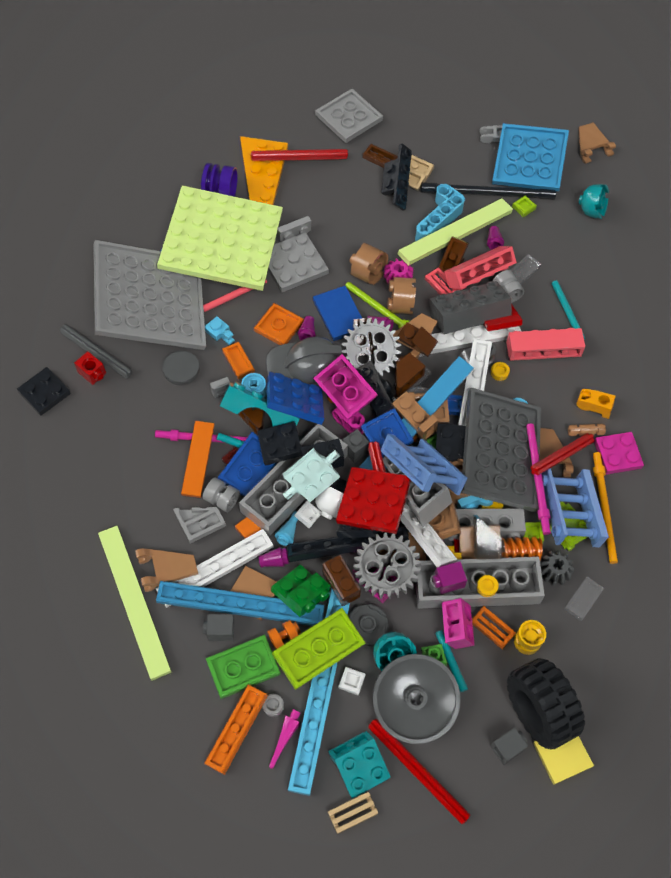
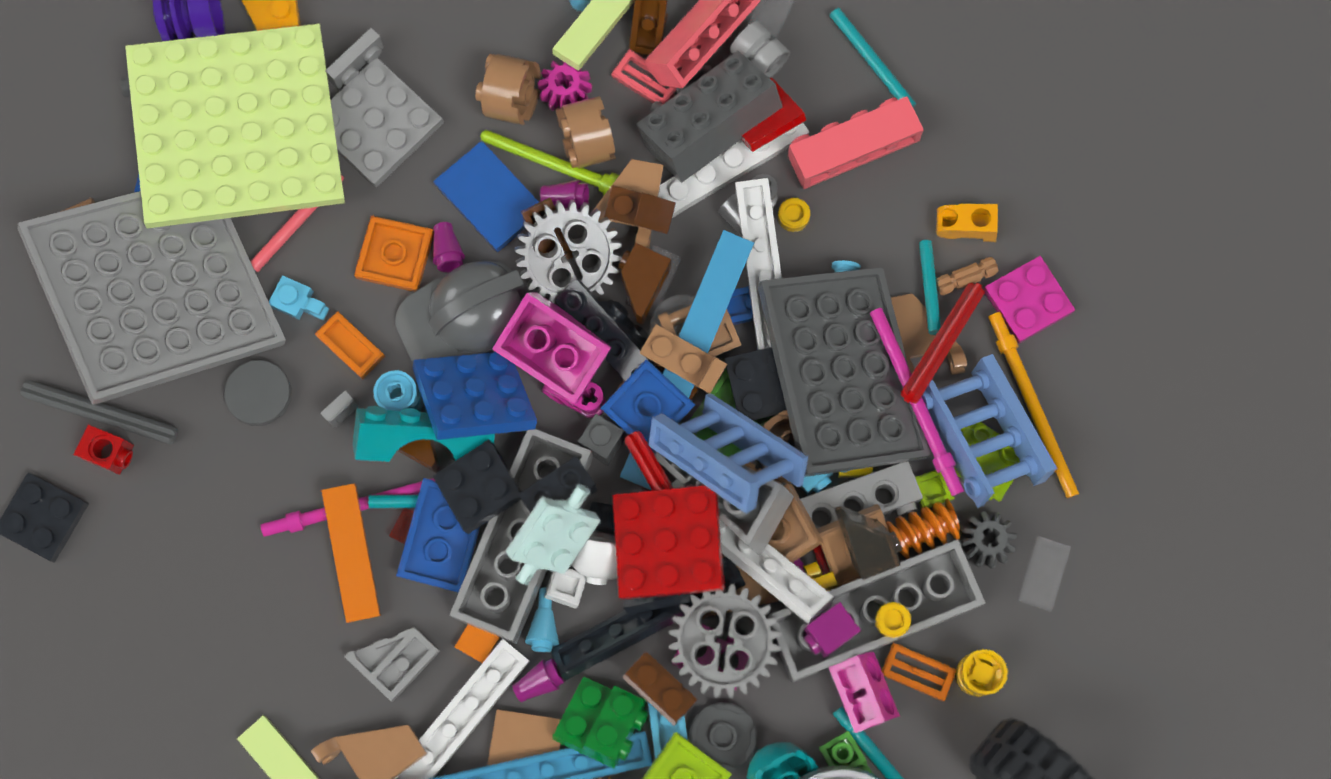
camera: 15 degrees left, 15 degrees up
(219, 493) = (401, 600): light grey wheel -> none
(564, 426) = (930, 286): none -> teal bar

